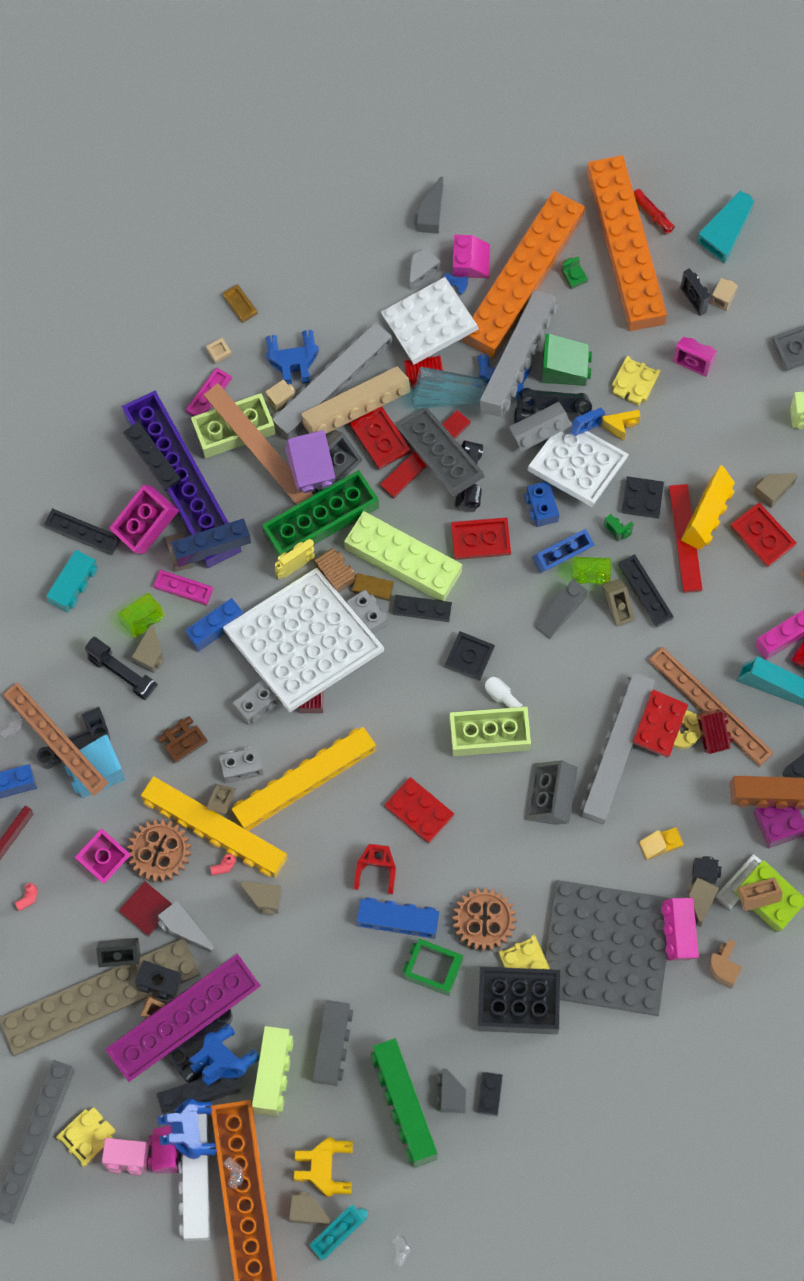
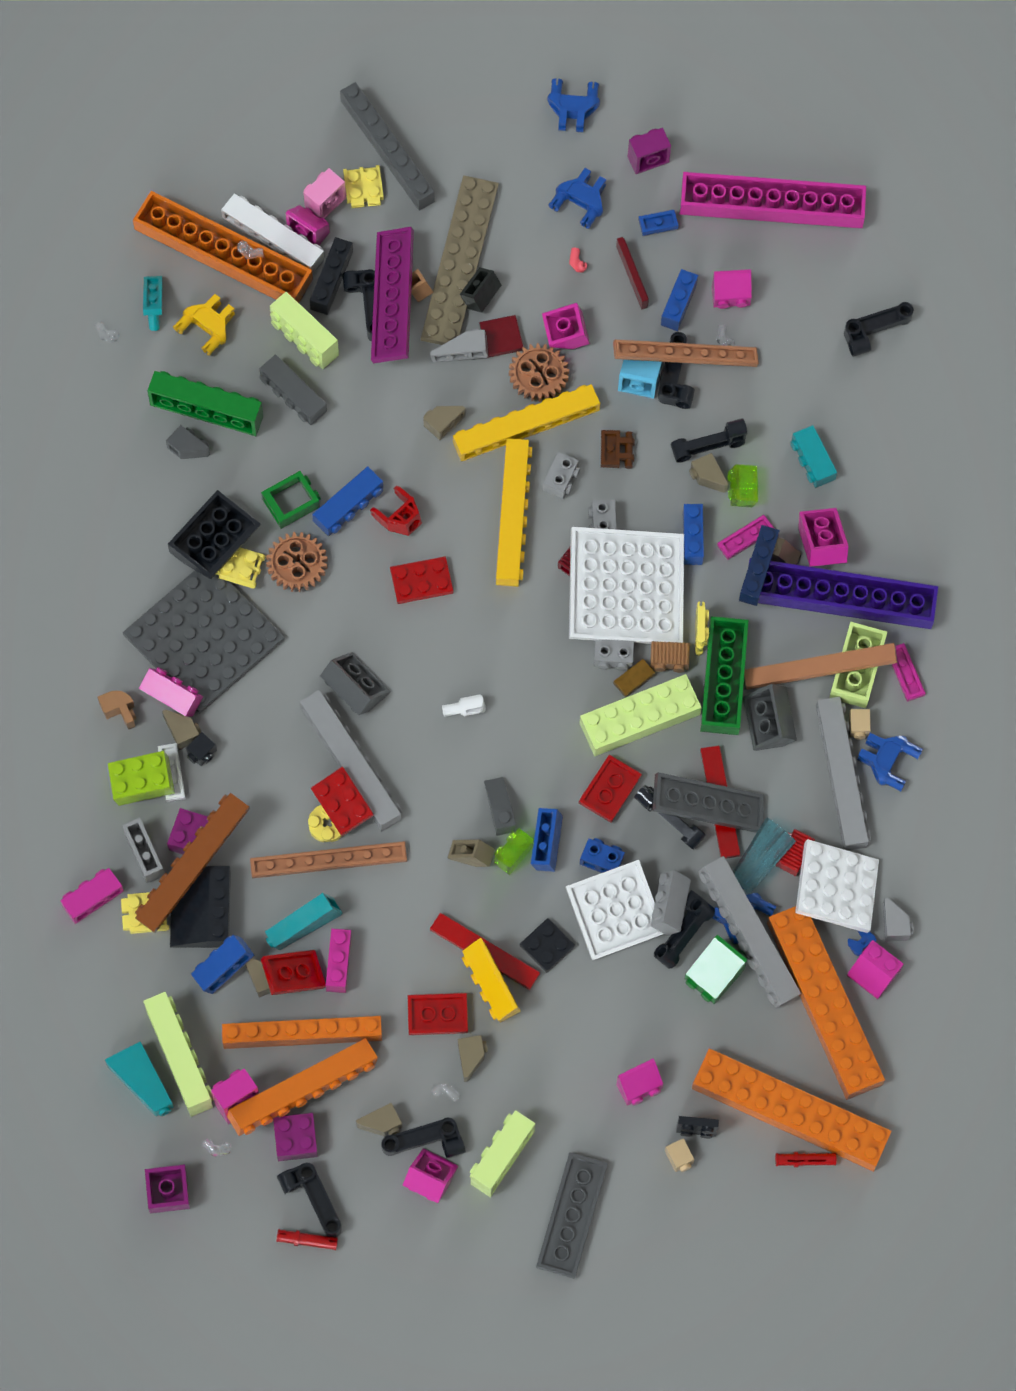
camera: 125 degrees right, 0 degrees up
(82, 531) = (854, 491): black plate -> none
(150, 971) = (430, 309): black brick -> none
(151, 456) = (873, 576): black plate -> none
(185, 1129) = (307, 236): connector -> none
(219, 350) = (939, 705): tan plate -> none
(220, 1059) = (344, 298): blue connector -> none
(221, 798) = (543, 439): dark tan plate -> none
(225, 866) = (489, 410): coral arm -> none
(240, 303) = (973, 754): pearl gold tile -> none
(307, 1211) = (185, 290): dark tan slope -> none
(310, 461) = (770, 685): medium lavender slope -> none
(356, 401) = (805, 773): tan brick -> none
(380, 437) = (762, 774): red plate -> none
(422, 608) = (586, 701): black plate -> none
(430, 210) = (945, 969): dark grey slope -> none
(469, 655) = (516, 706): black plate -> none
(490, 731) = (440, 671): yellowish green brick -> none
(490, 1094) = (165, 473): black plate -> none
(573, 272) = (796, 1046): green bracket -> none
(587, 421) = (646, 952): blue plate -> none
(615, 527) = (538, 900): green bracket -> none
(616, 422) = (627, 971): yellow slope -> none
(635, 380) = (656, 1020): light yellow plate -> none
(645, 590) = (463, 882): black plate -> none
(661, 843) = (250, 736): yellow slope -> none
(714, 731) = (303, 838): dark red brick -> none
(725, 228) = (741, 1208): teal slope -> none
(760, 894) = (145, 760): medium nougat slope -> none

